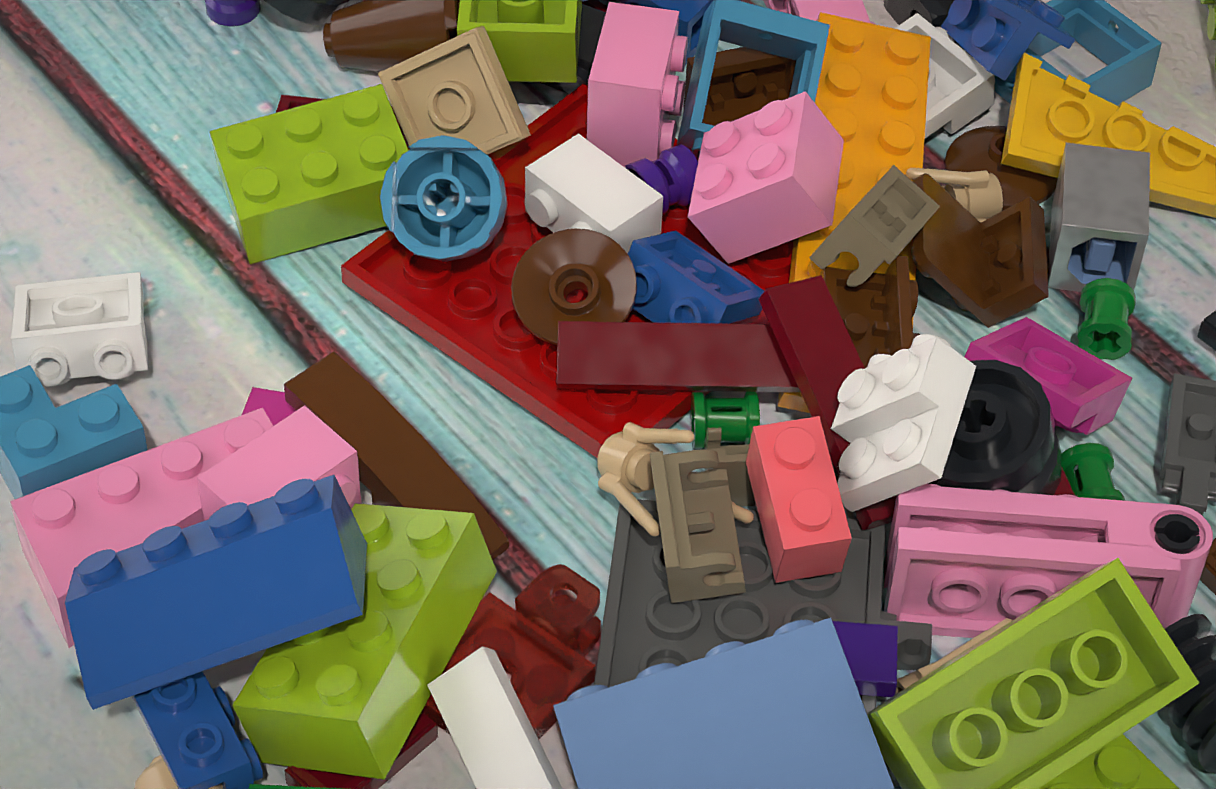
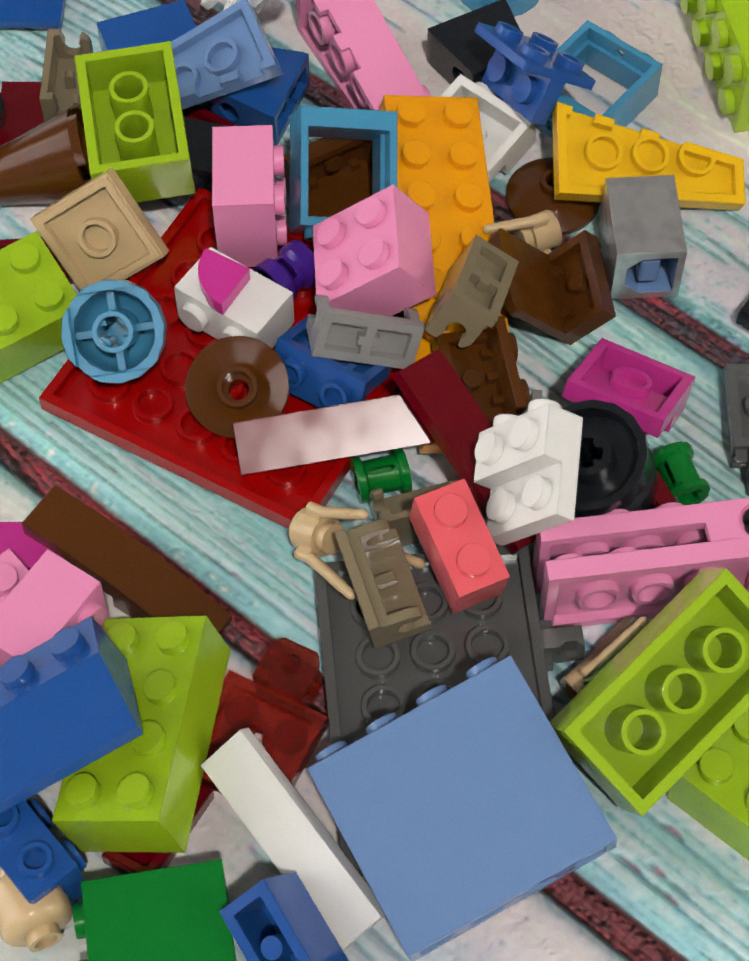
camera: 10 degrees left, 10 degrees up
(582, 166) = (221, 279): none -> dark pink tile
(734, 252) = (364, 335): none -> light grey hinge
(870, 656) = (539, 665): dark purple tile -> none
(1105, 324) = (663, 323): green bush -> none

